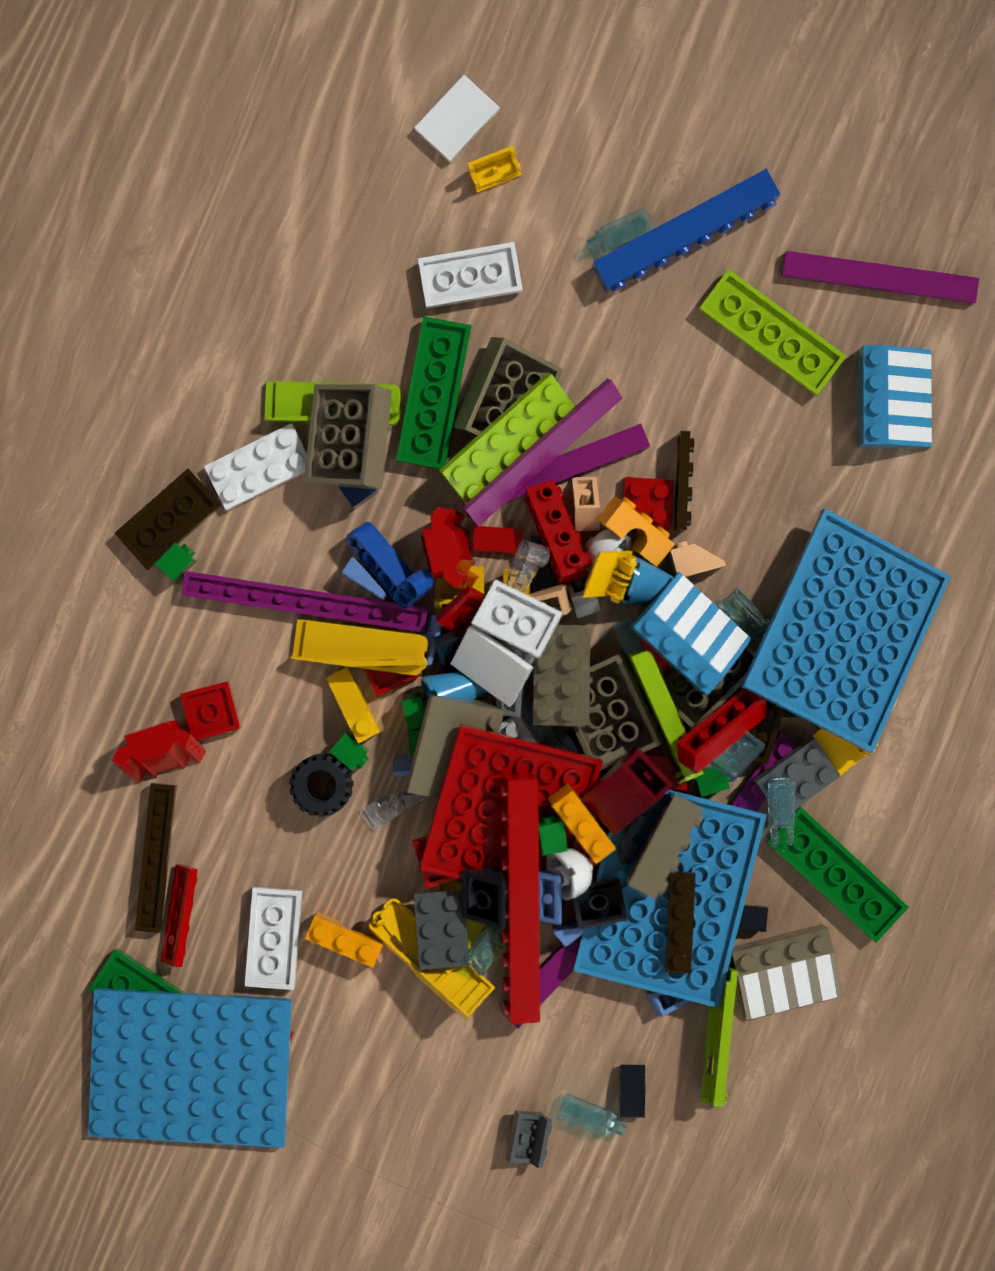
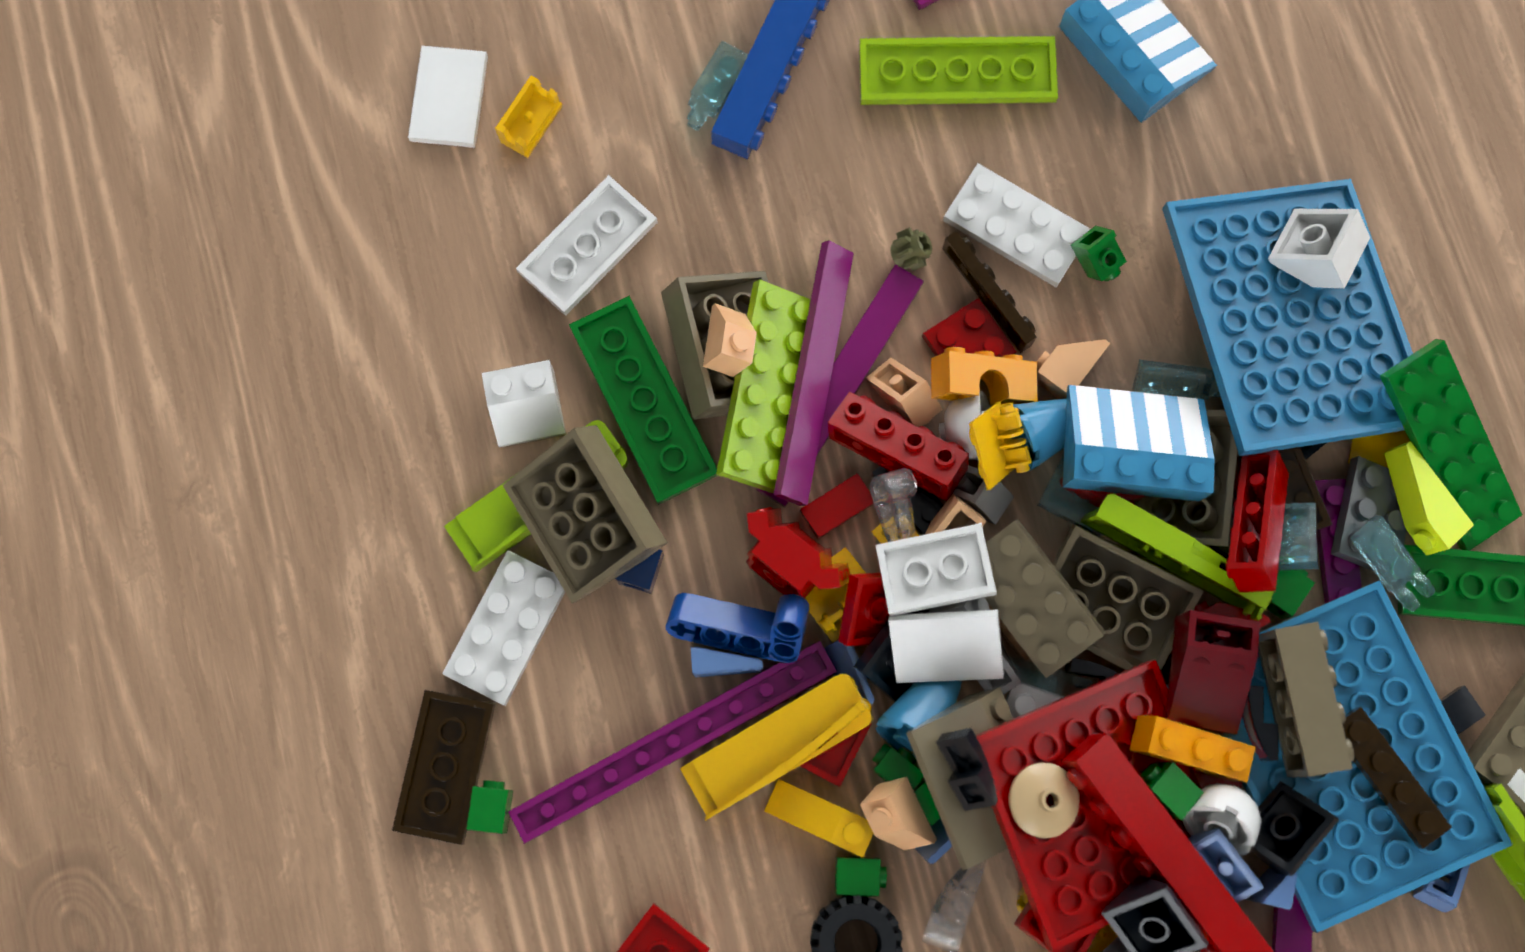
camera: 35 degrees left, 10 degrees down
(363, 344) = (524, 403): none -> white slope
(394, 735) = (897, 815): none -> light nougat slope
(446, 745) = (971, 772): none -> black slope
(471, 777) = (1029, 804): none -> tan dish
(505, 397) = (729, 341): none -> light nougat slope
(656, 421) = (911, 249): none -> olive gear
(732, 453) = (1015, 224): none -> white plate
(764, 508) = (1099, 254): none -> green brick
(828, 795) = (1424, 501): none -> neon yellow slope
(870, 771) = (1451, 438): none -> green plate
(892, 603) = (1321, 246): none -> white slope

